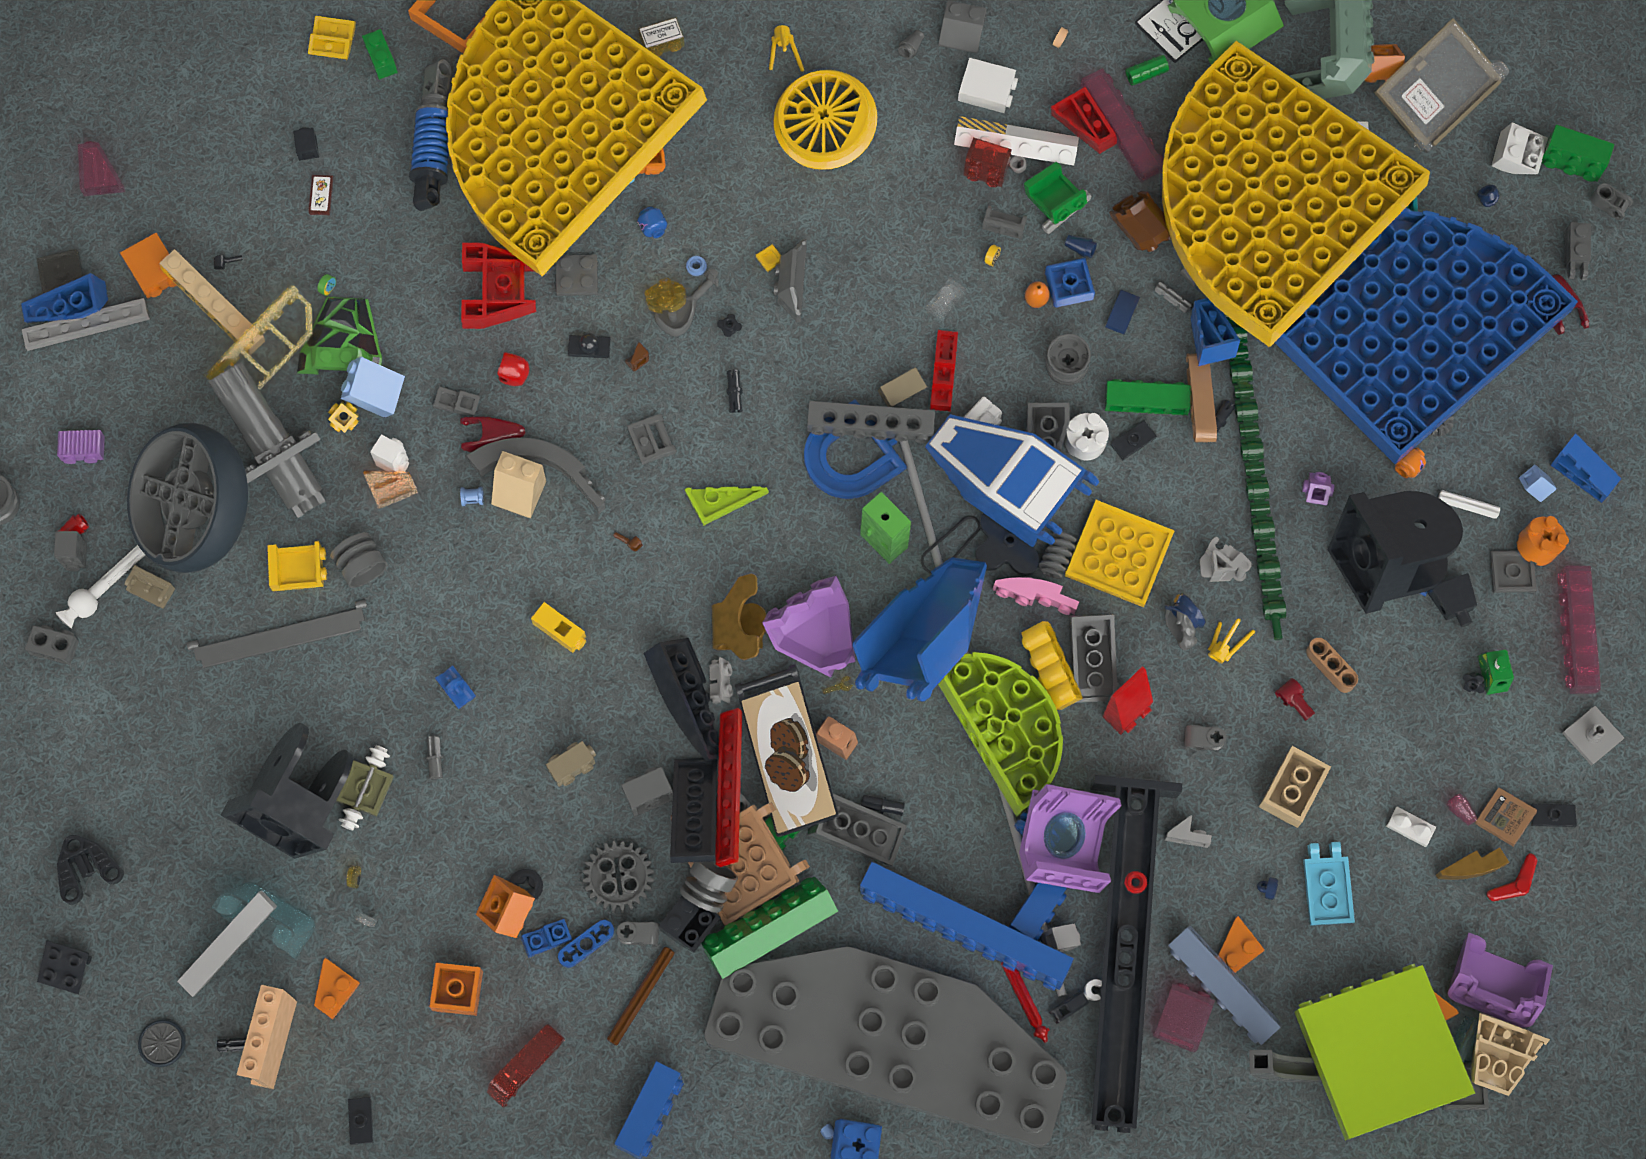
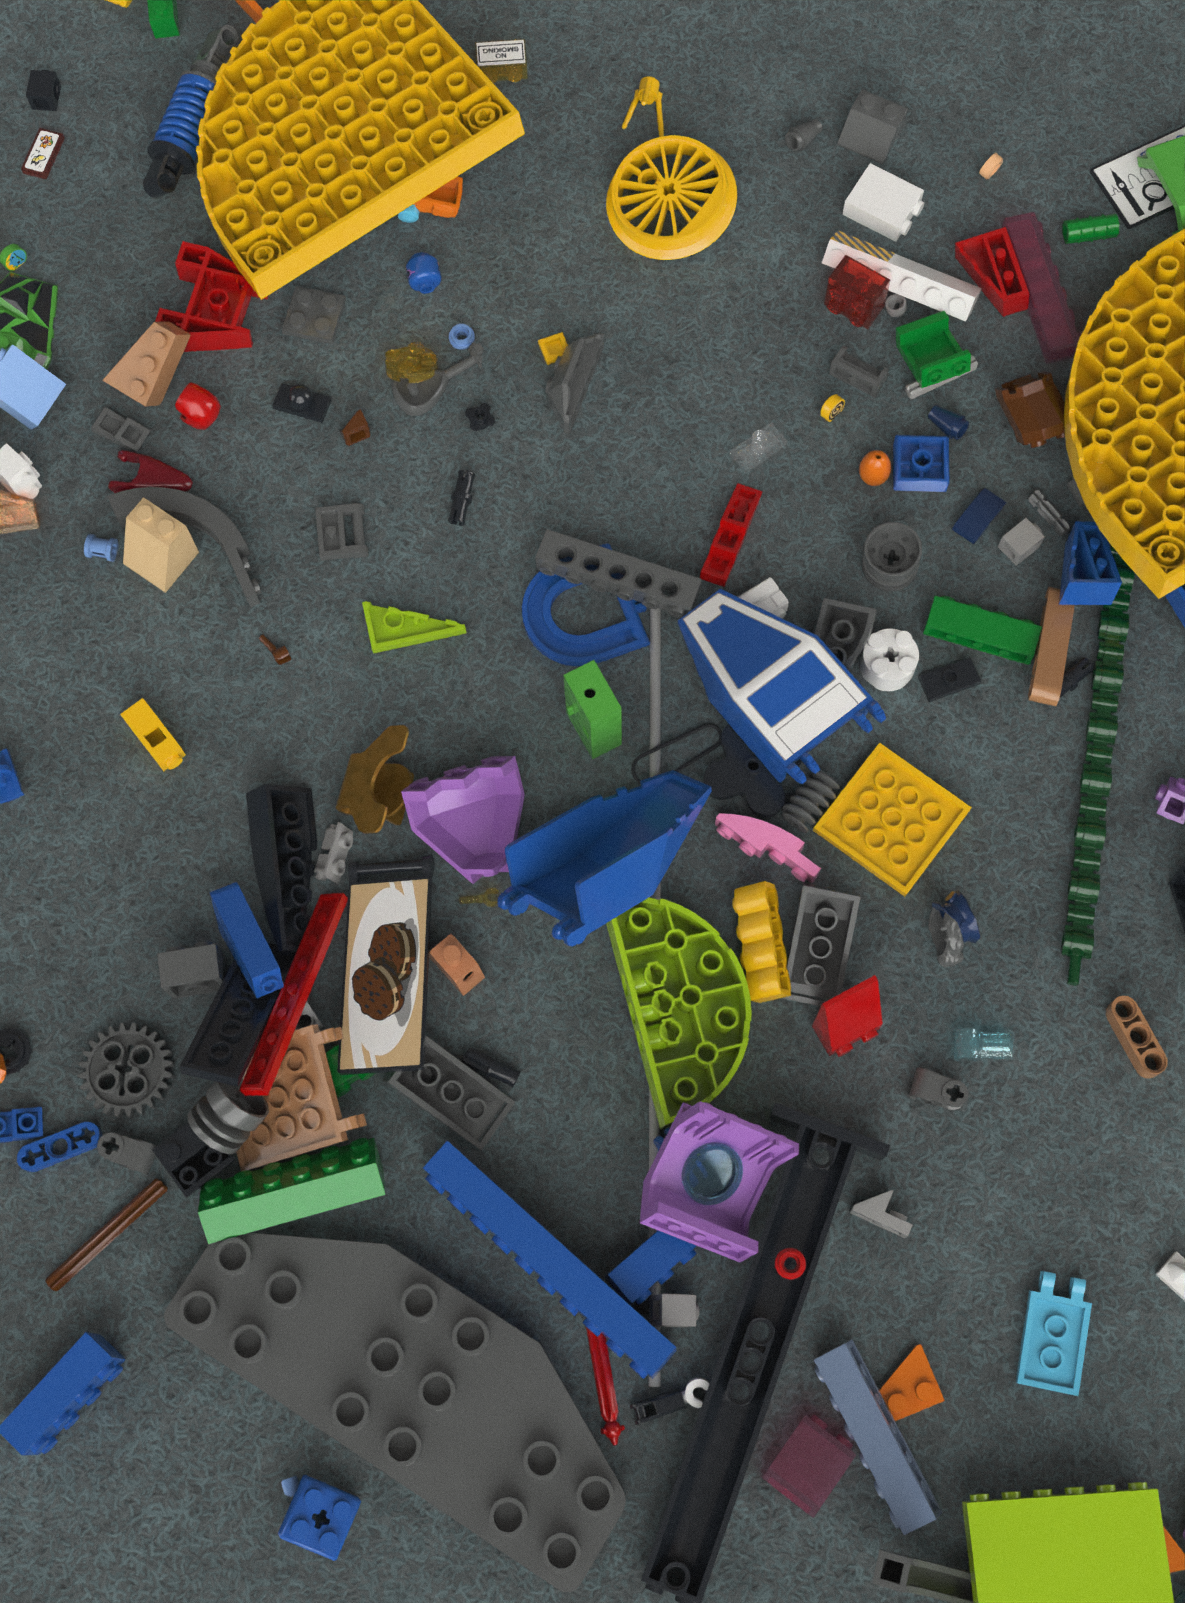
camera: 20 degrees right, 0 degrees up
(468, 346) = (150, 364): none -> medium nougat wedge
(571, 763) = (117, 908): dark tan brick -> none
(681, 759) = (246, 940): none -> blue slope
(902, 387) = (671, 542): dark tan hinge -> none
(1158, 324) = (1021, 541): none -> light grey brick
(1220, 651) = (991, 979): yellow plant -> none
(1223, 563) = (1025, 866): light grey piece -> none
(1224, 699) = (977, 1045): none -> clear light blue piece
(1271, 888) = (976, 1317): dark blue tile -> none
(1292, 695) = (1072, 1063): dark red pin -> none
(1295, 786) = (1043, 1188): tan brick -> none

